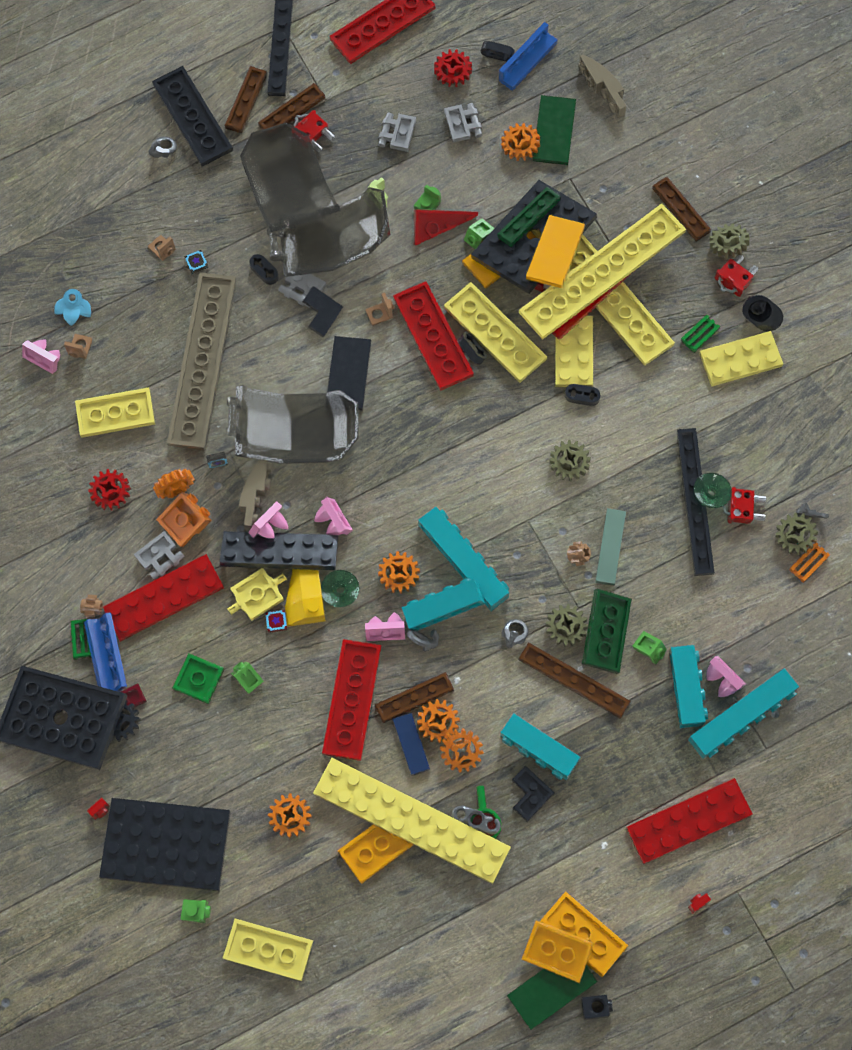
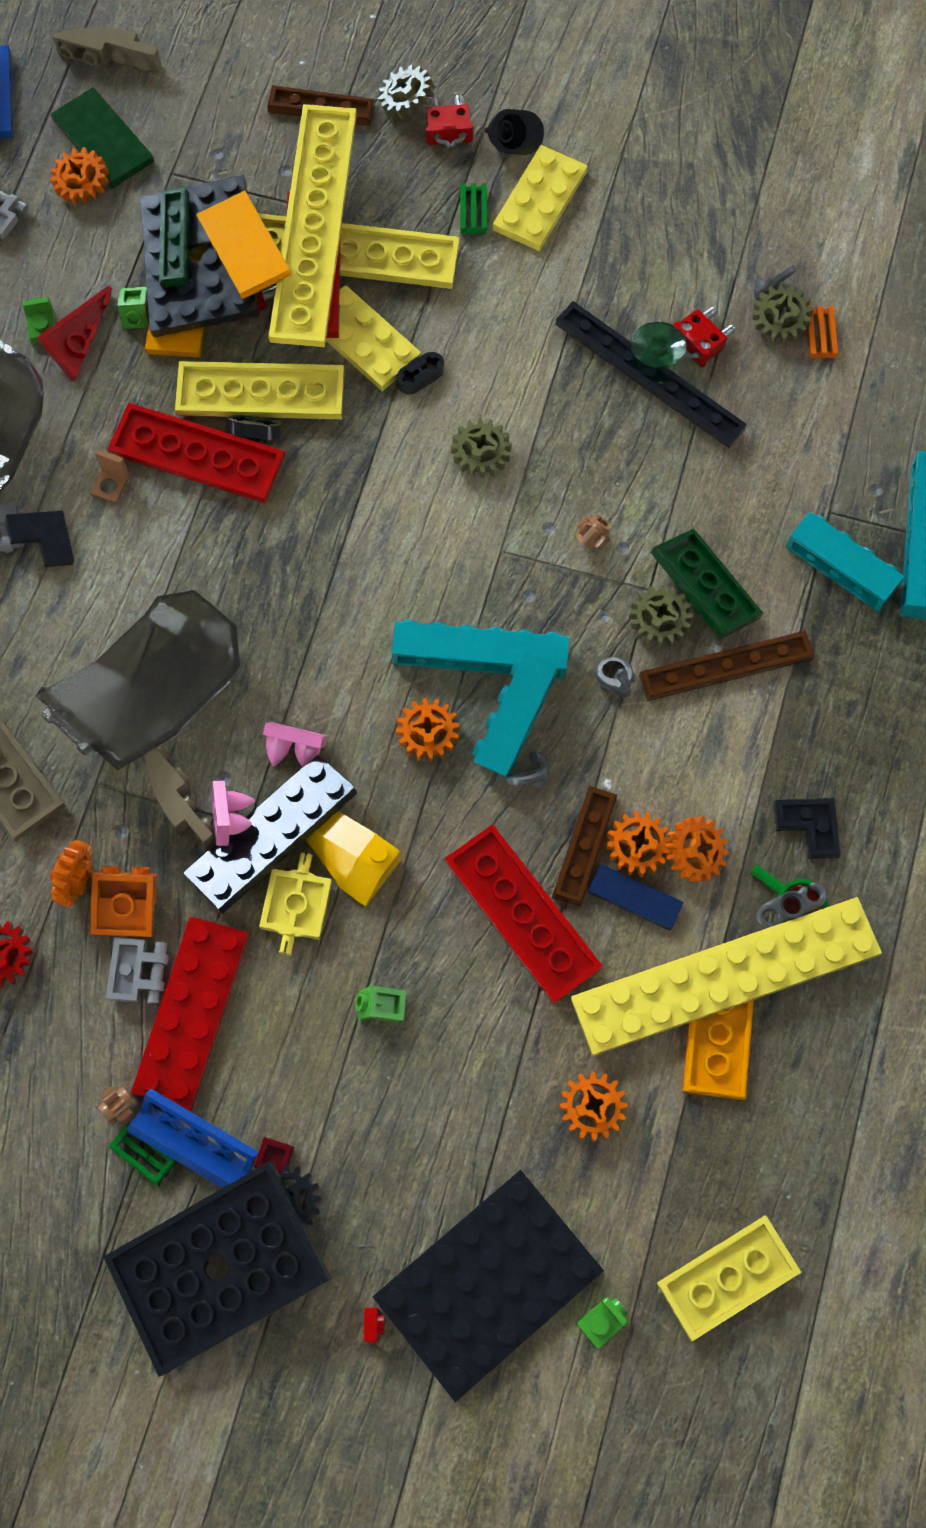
camera: 50 degrees left, 0 degrees up
(198, 678) = (327, 1062): green tile -> none
(217, 459) = (92, 802): clear smoke tile -> none
(276, 621) = (348, 912): tile -> none
(336, 580) = (383, 794): clear green dish -> none
(350, 367) = (136, 566): black tile -> none
(390, 630) = (484, 799): bright pink tile -> none
(540, 747) = (770, 765): teal brick -> none
(610, 547) = (615, 497): sand green tile -> none
(650, 647) = (765, 557): bright green bracket -> none
(730, 683) = (880, 518): bright pink tile -> none

